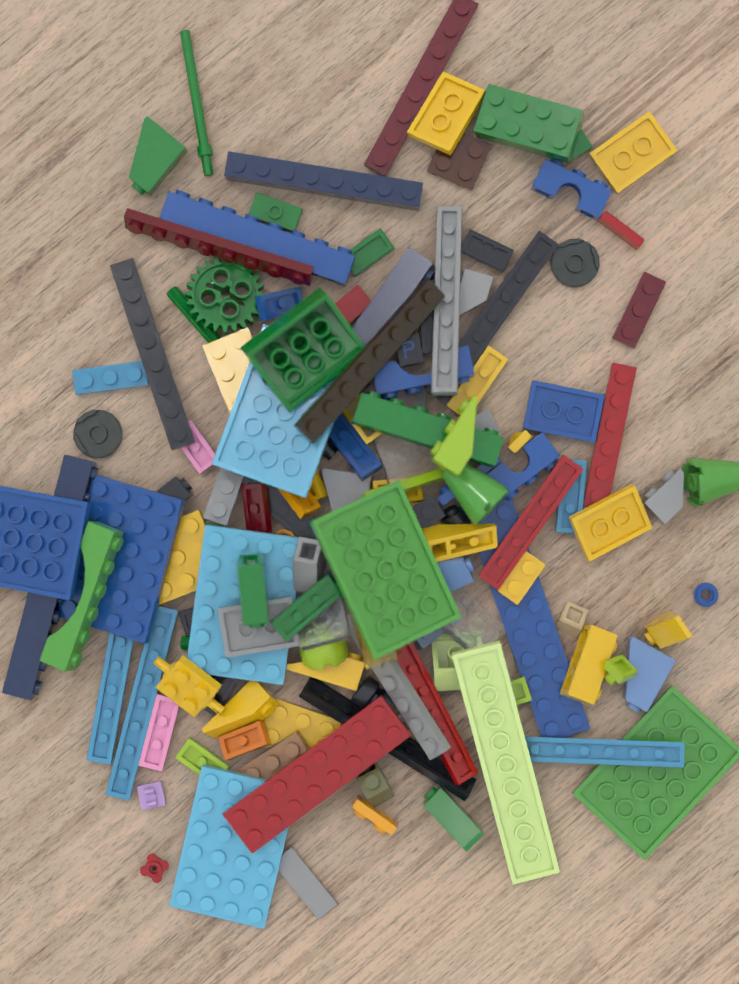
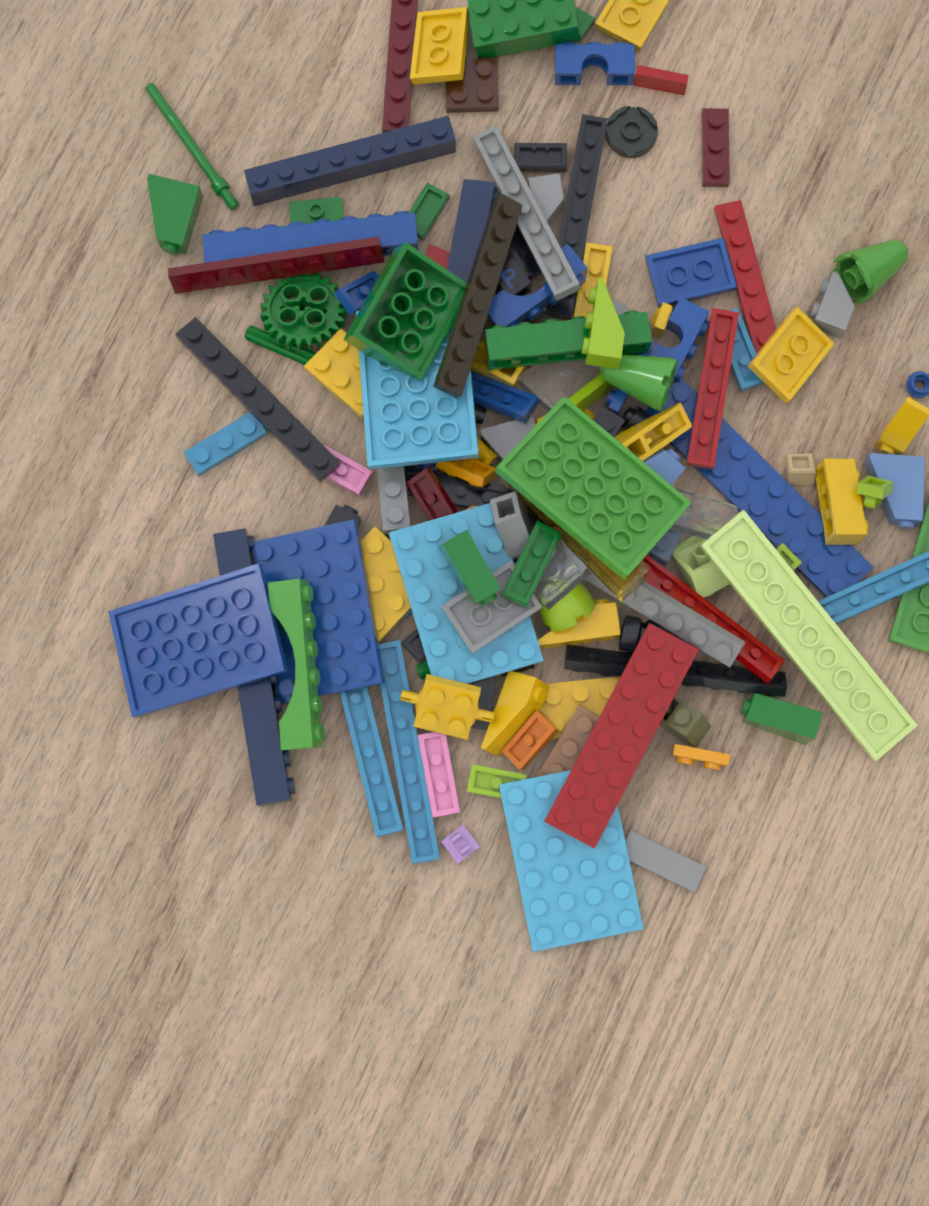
camera: 20 degrees left, 10 degrees down
(97, 433) = (237, 503): pearl dark grey tile -> none
(156, 875) = (504, 925): red plate -> none
(521, 577) = (730, 447): yellow plate -> none

